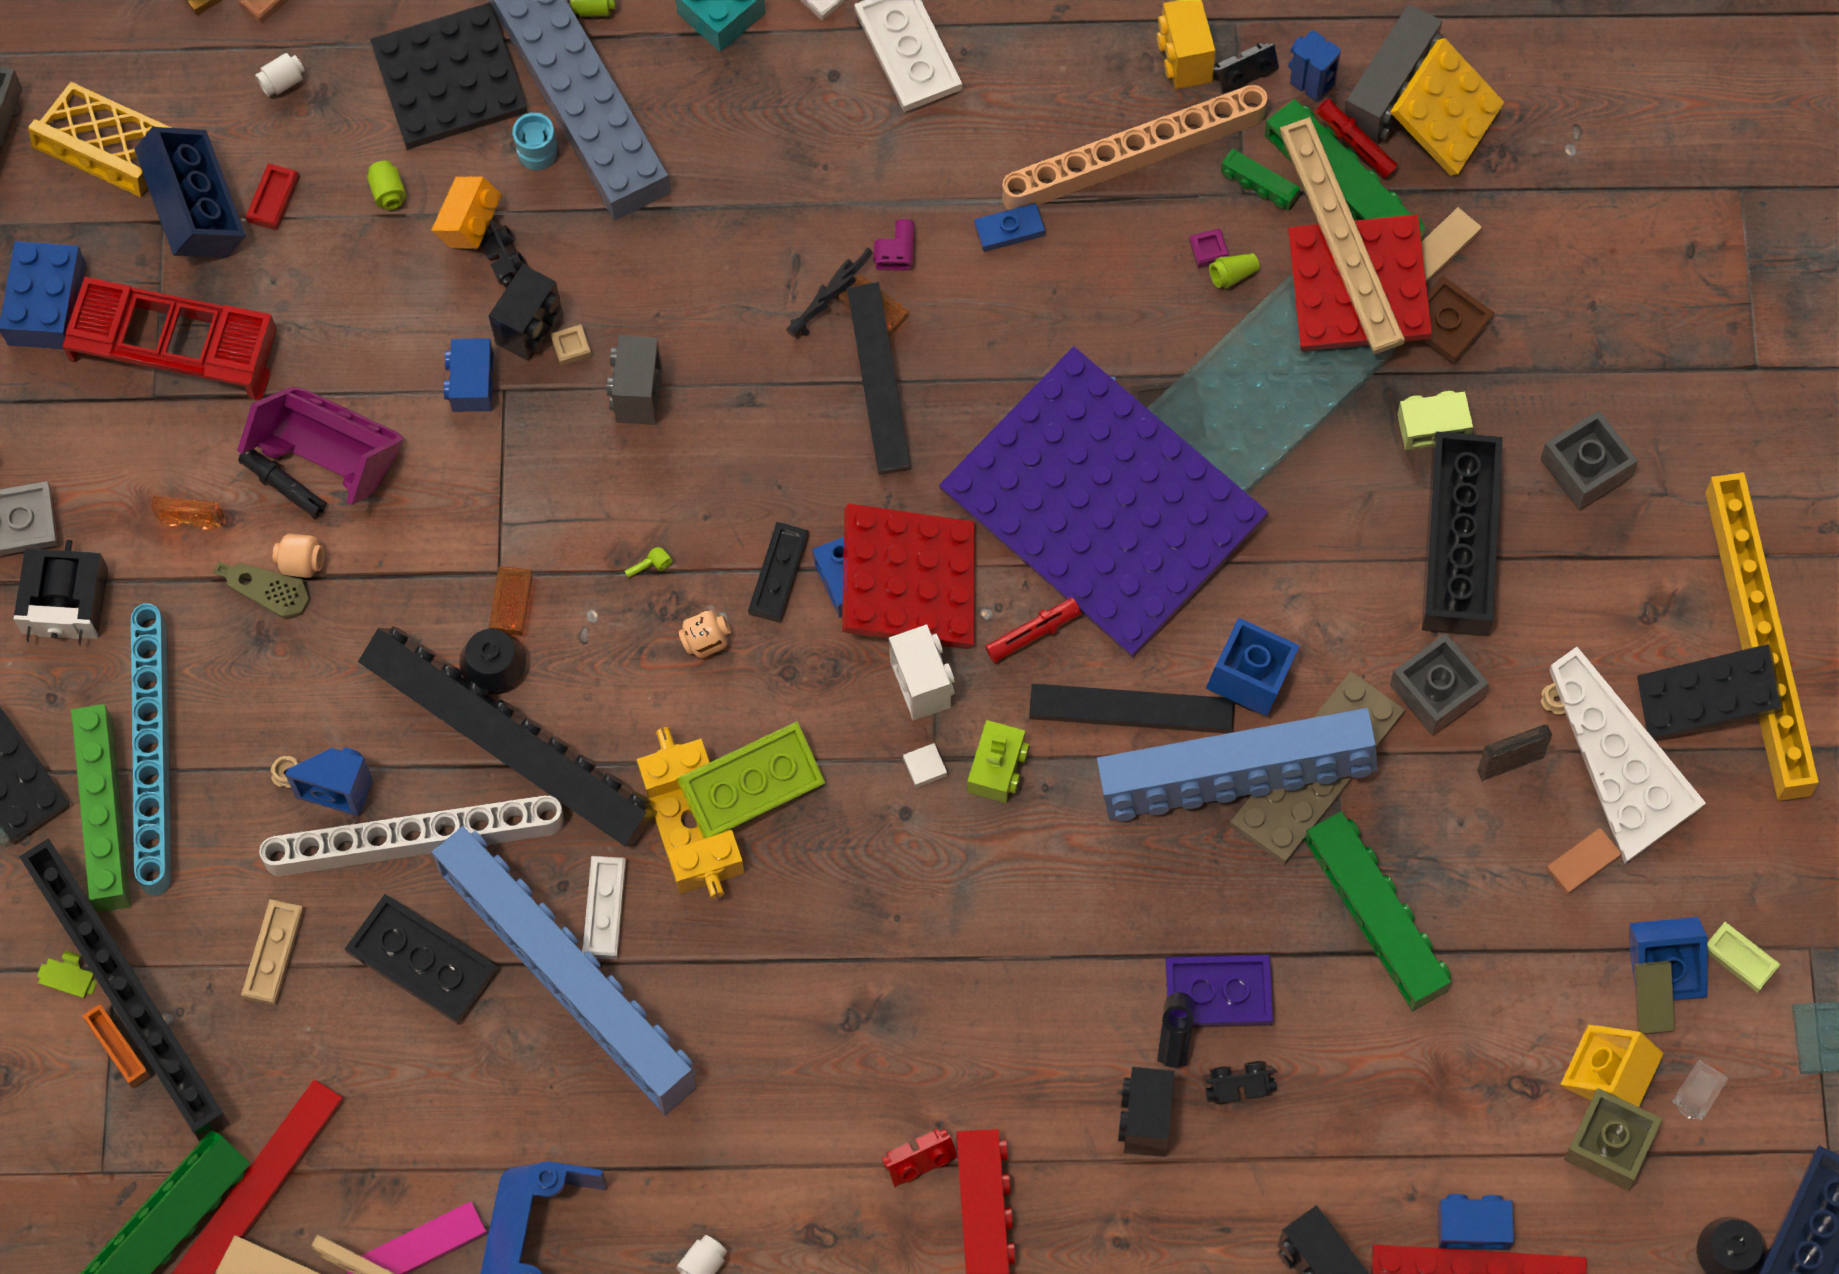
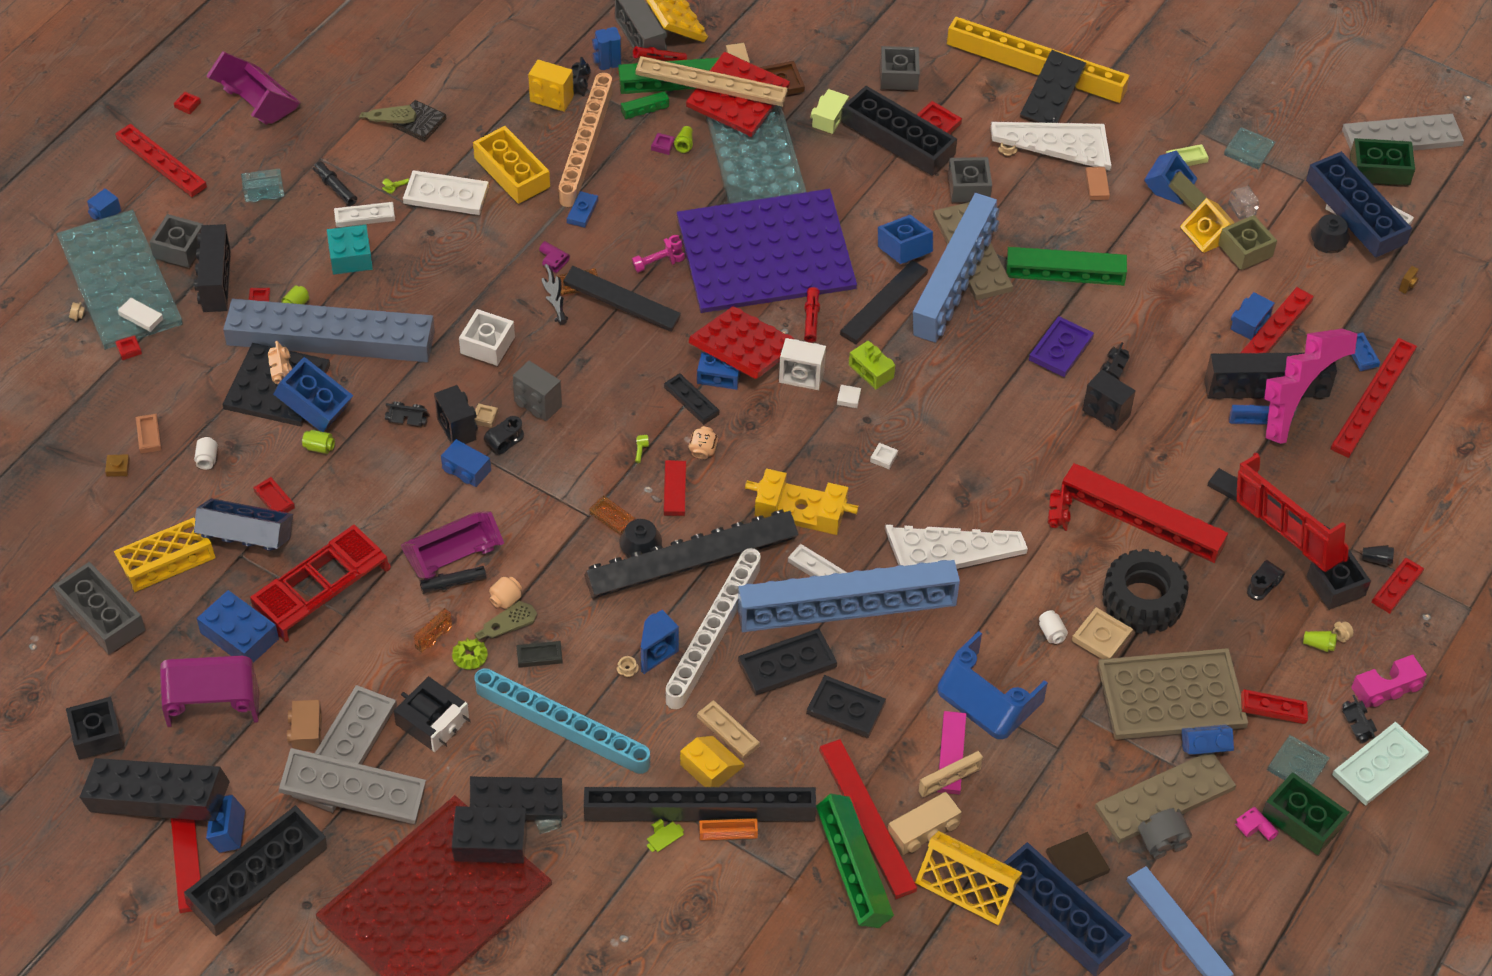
camera: 60 degrees left, 15 degrees down
(101, 808) = (575, 758): bright green brick -> none
(193, 587) = (467, 661): none -> lime gear
(205, 961) = (709, 761): none -> yellow slope
(240, 656) = (539, 654): none -> pearl dark grey tile
(398, 1074) = (846, 706): none -> black plate
(438, 129) = (313, 394): none -> blue brick
(466, 212) = (370, 413): light orange brick -> none
(471, 57) = (280, 357): none -> light nougat hinge
(535, 141) = (356, 363): medium azure wheel -> none
(548, 390) = (503, 436): none -> black piece
(612, 646) = (674, 488): none -> red tile
(687, 261) = (487, 337): none -> white brick
(737, 1040) = (965, 547): none -> white wing
(750, 780) = (804, 463): lime tile -> none
(853, 873) = (884, 456): none -> white tile
(961, 359) = (640, 263): none -> dark pink bar
(1009, 91) = (511, 164): none -> yellow brick
(1176, 1031) = (1070, 362): black piece -> none
(1514, 752) = (1027, 170): tile -> none
(1528, 571) = (940, 117): none -> red plate

